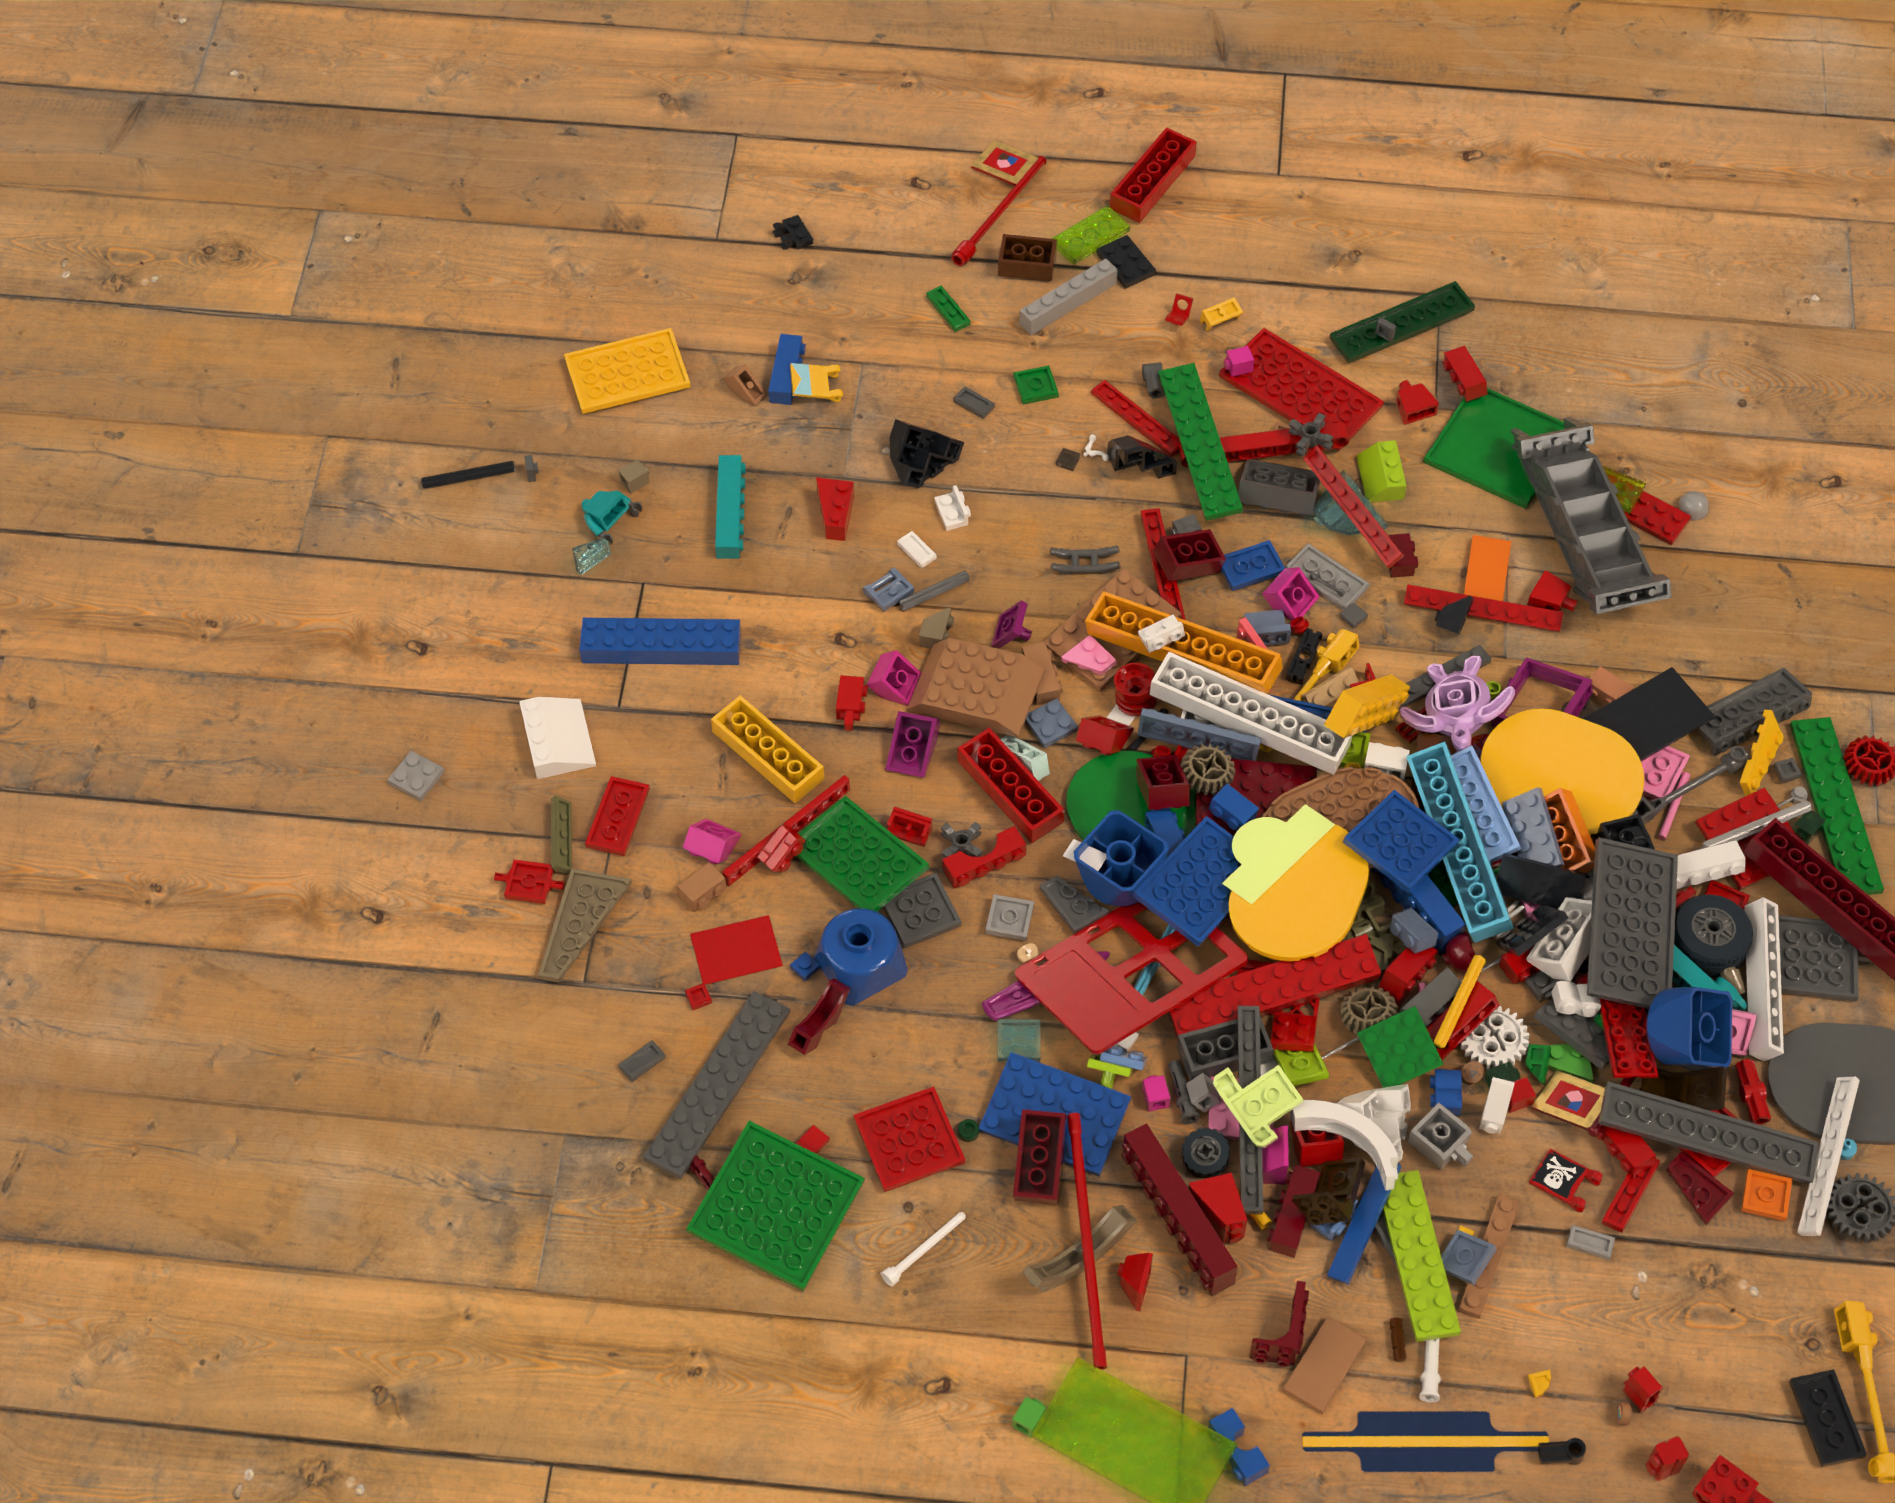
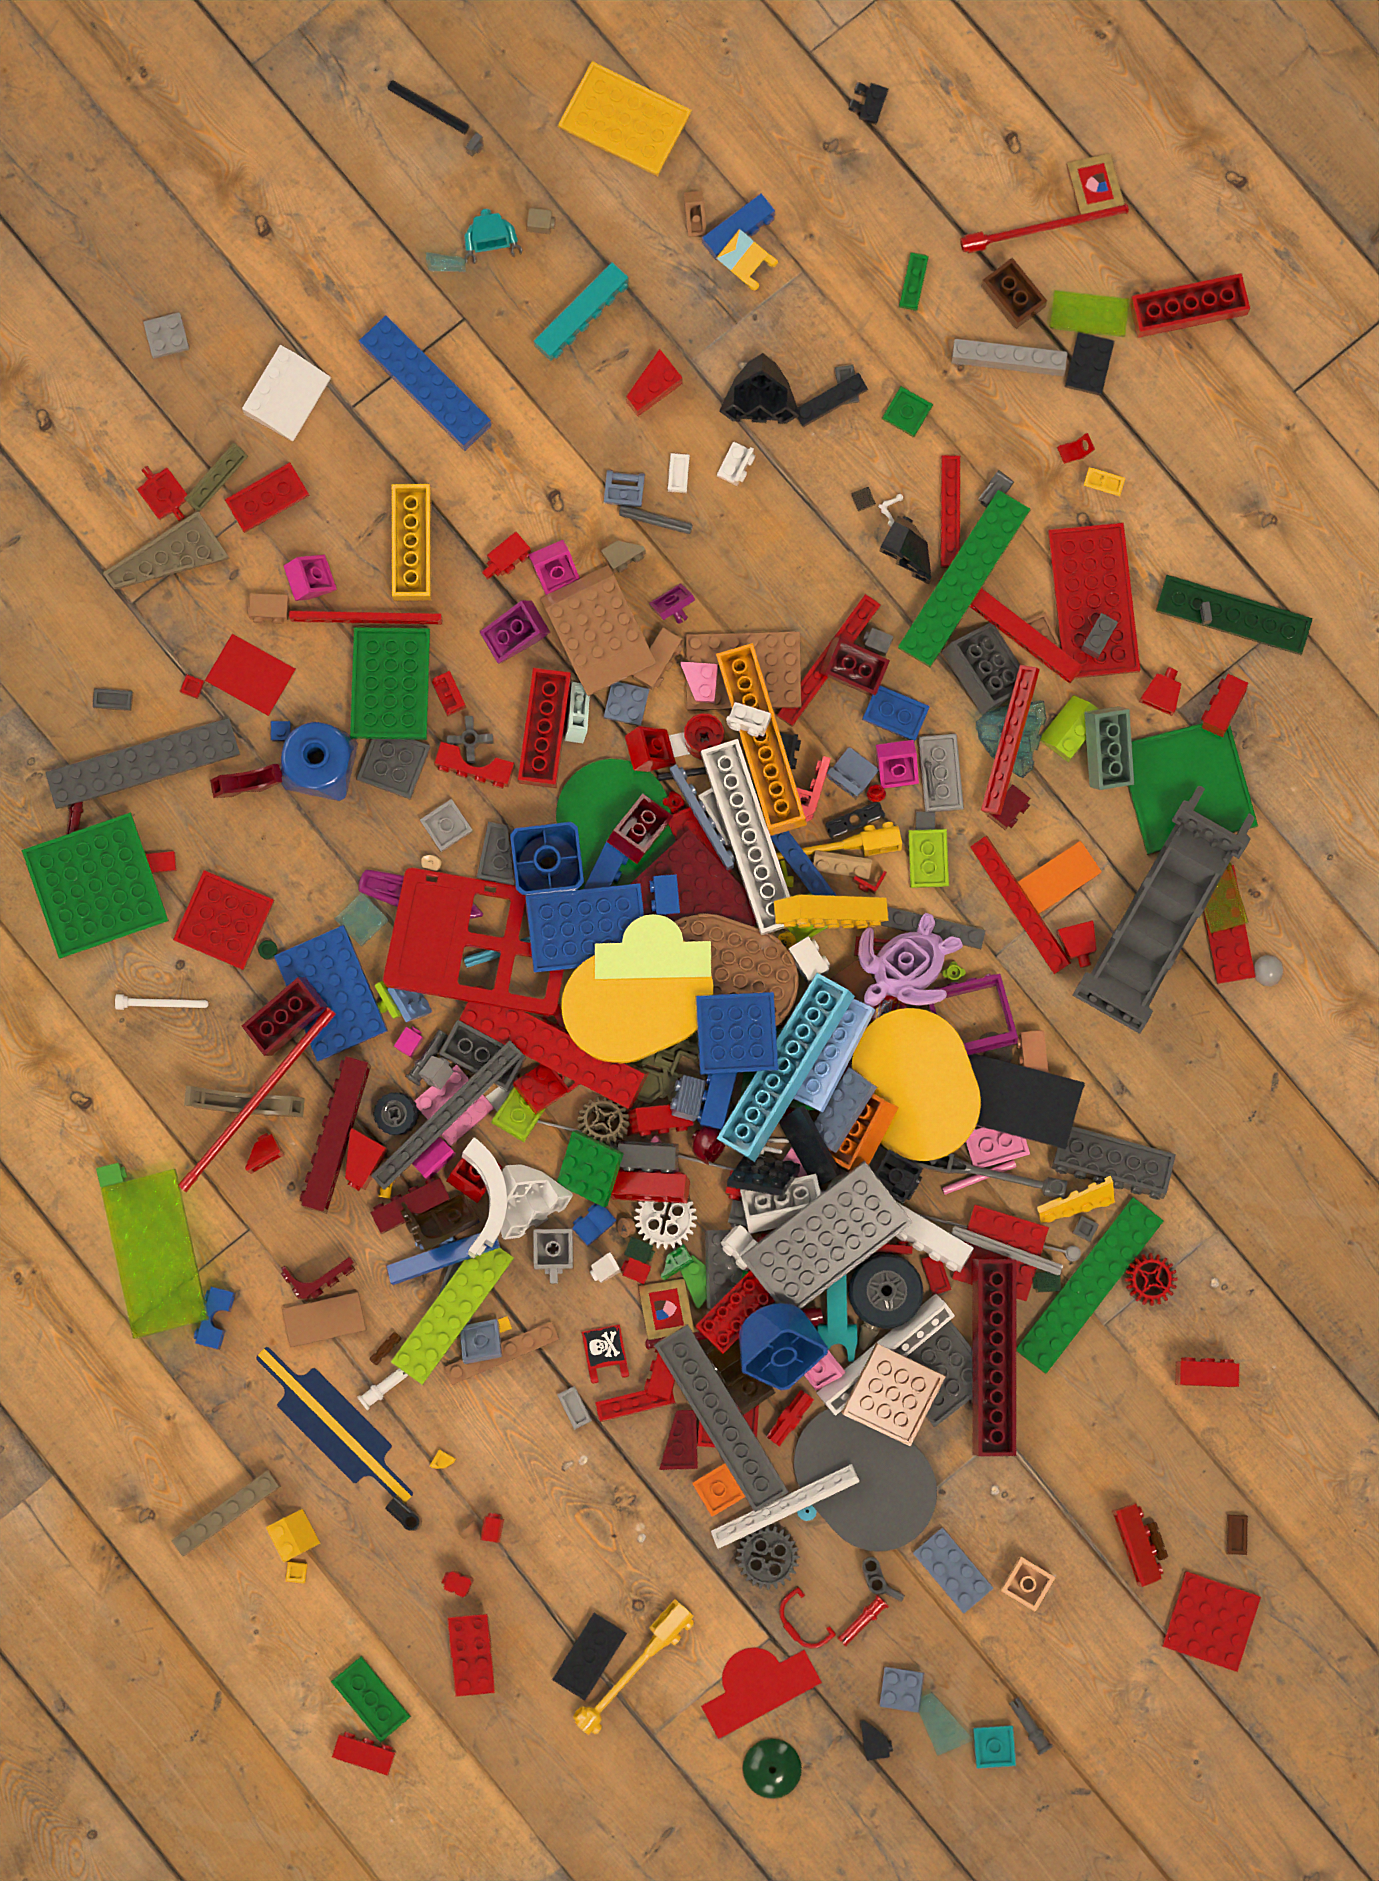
camera: 45 degrees right, 25 degrees up
(782, 848) = (344, 631): red brick -> none
(975, 416) = (831, 399): none -> black plate
(1090, 856) = (527, 841): white sticker -> none
(1092, 553) = (784, 584): dark grey piece -> none
(1218, 775) = (663, 855): dark tan gear -> none
(1239, 361) = (1067, 537): dark pink brick -> none
(1258, 1102) = (449, 1120): yellowish green piece -> none
(1310, 434) = (1039, 646): dark grey pin -> none
(1333, 398) = (1099, 636): none -> dark grey brick
(1385, 635) = (928, 858): none -> lime tile
(1425, 454) = (1109, 748): none -> sand green brick
(1454, 615) = (988, 892): black slope -> none
(1459, 1001) = (658, 1177): yellow axle -> none
(1806, 995) = (893, 1394): none -> plate

